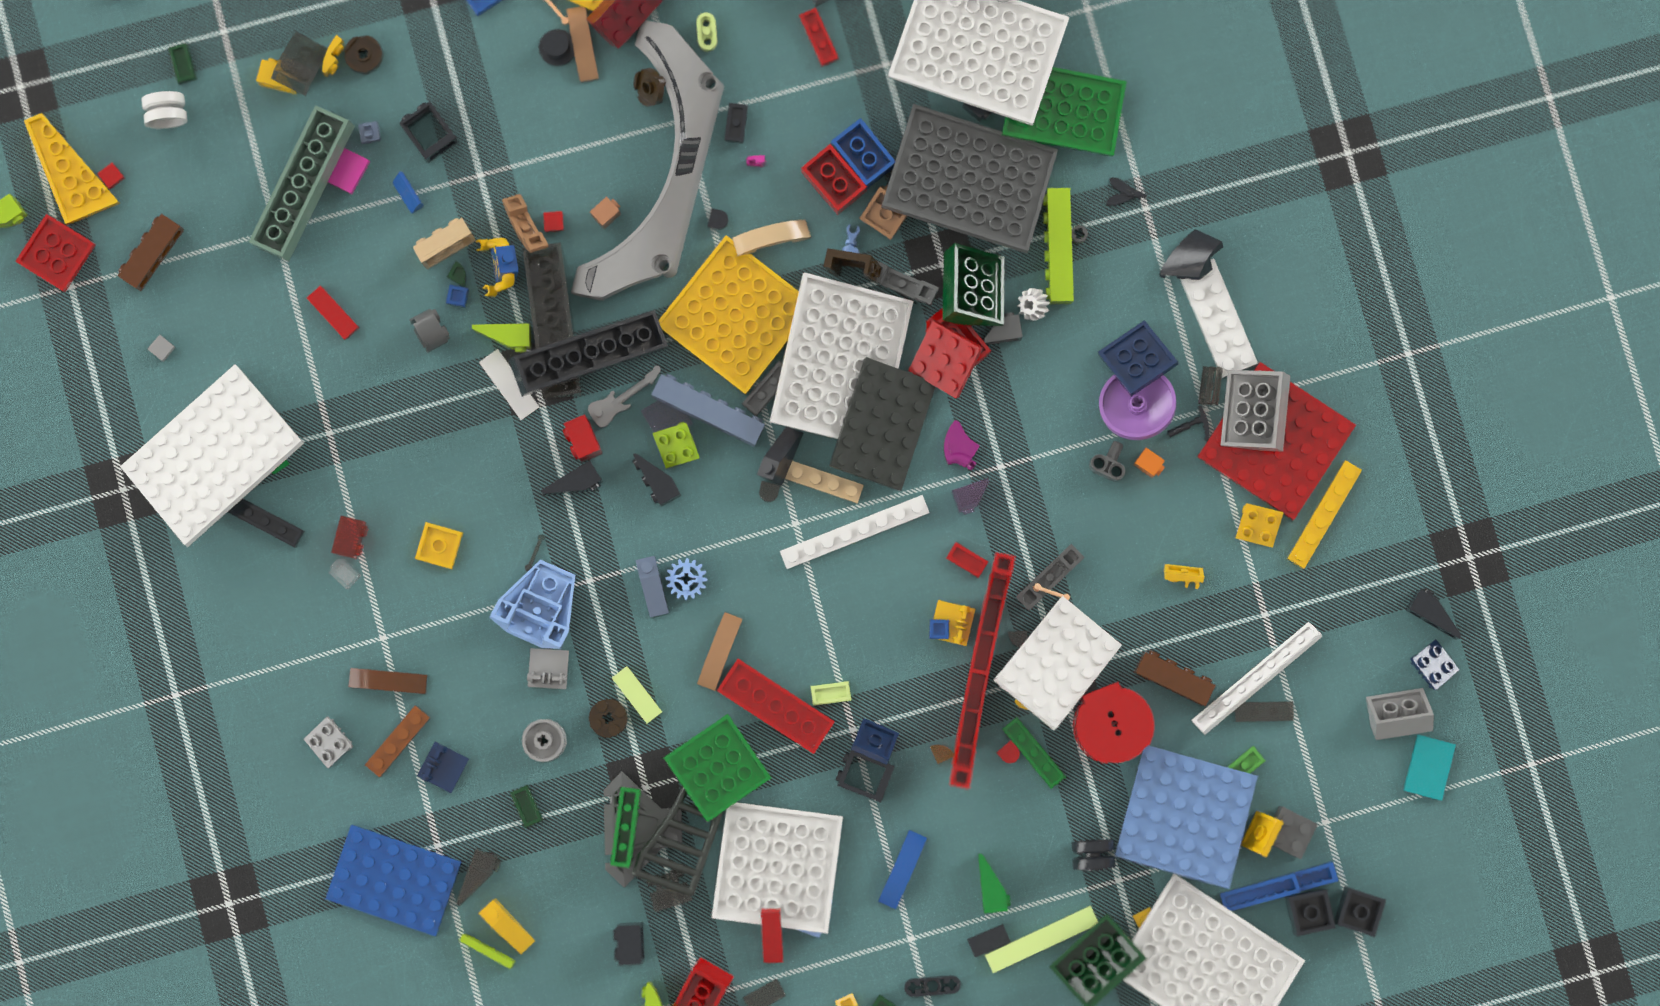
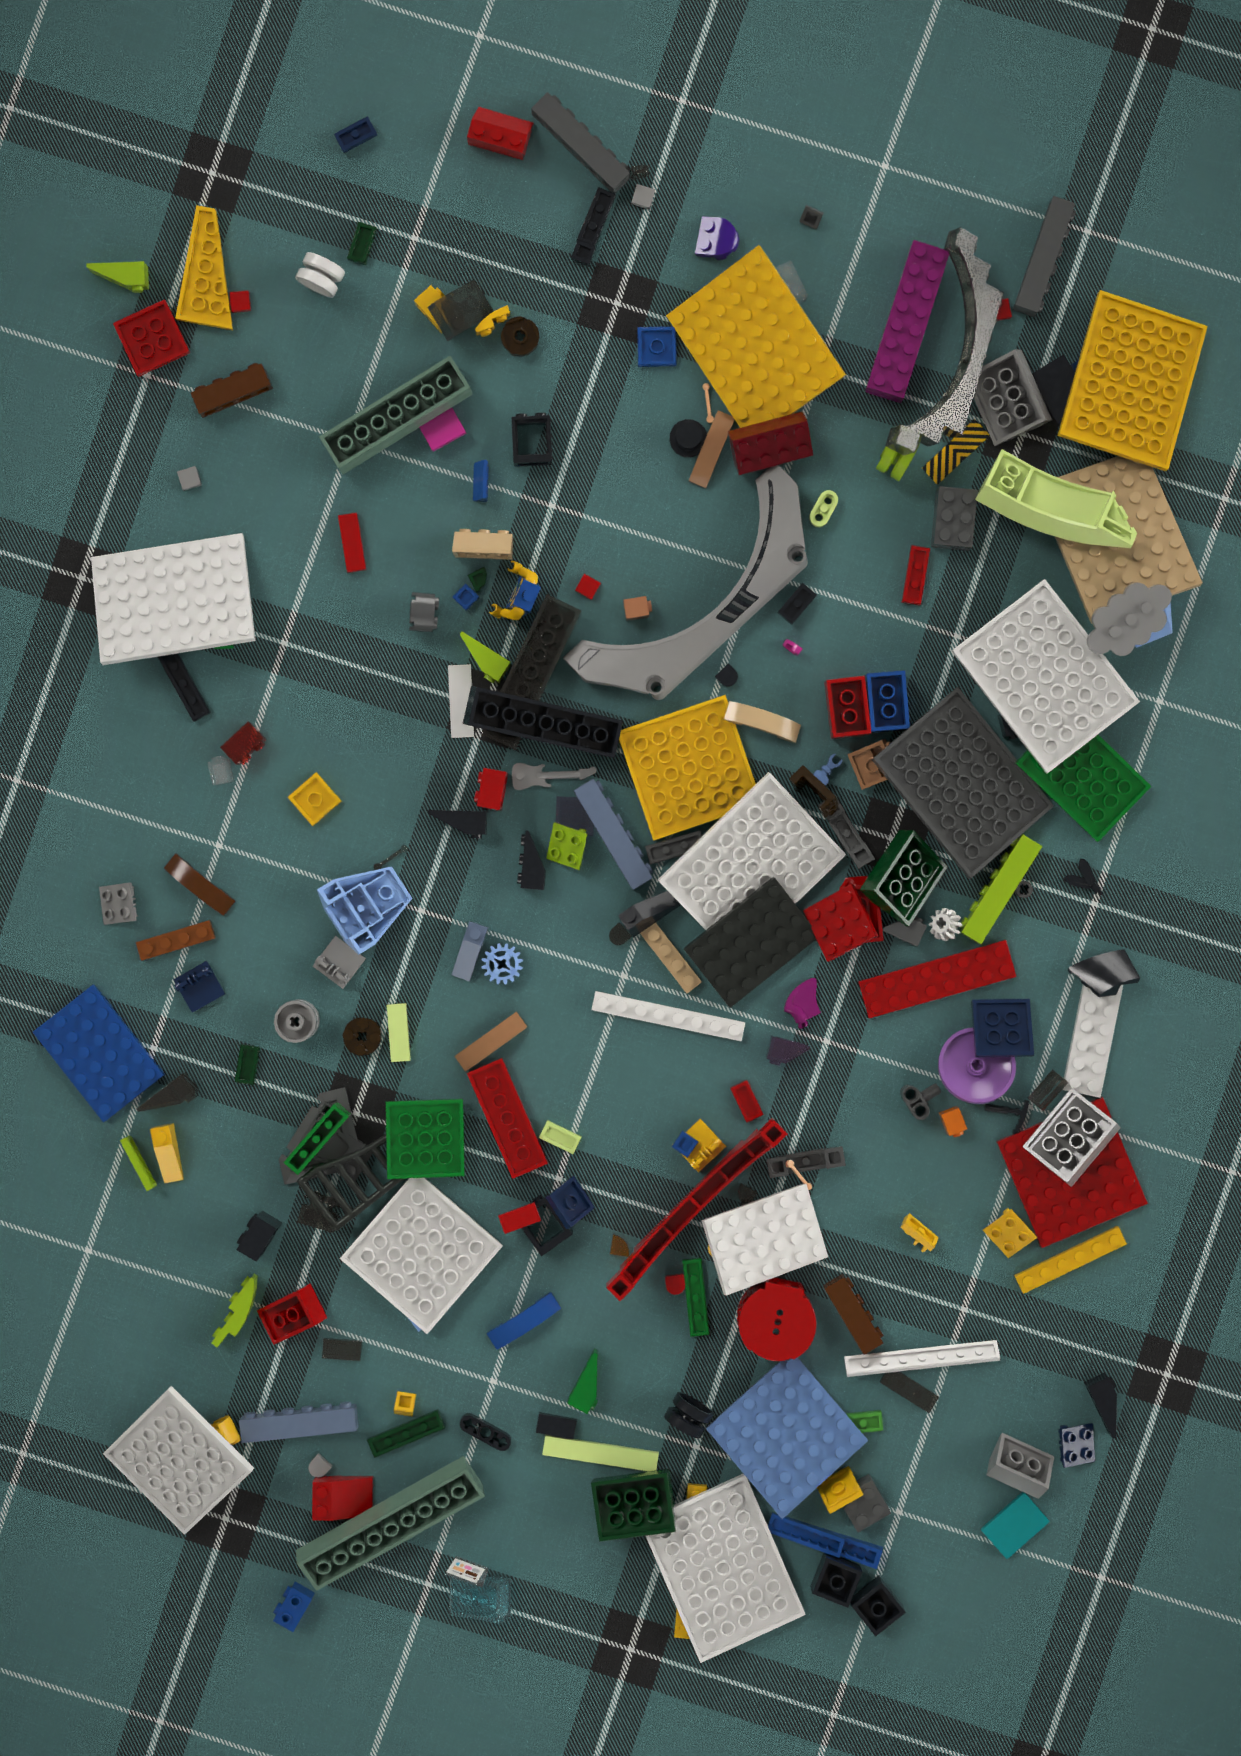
camera: 30 degrees right, 5 degrees up
(369, 132) = (482, 407): sand blue tile -> none
(523, 224) = (560, 574): medium nougat slope -> none
(650, 94) = (743, 525): dark brown plate -> none
(772, 935) = (380, 1305): red tile -> none
(840, 781) = (519, 1217): none -> red tile
(1057, 354) = (937, 979): none -> red plate

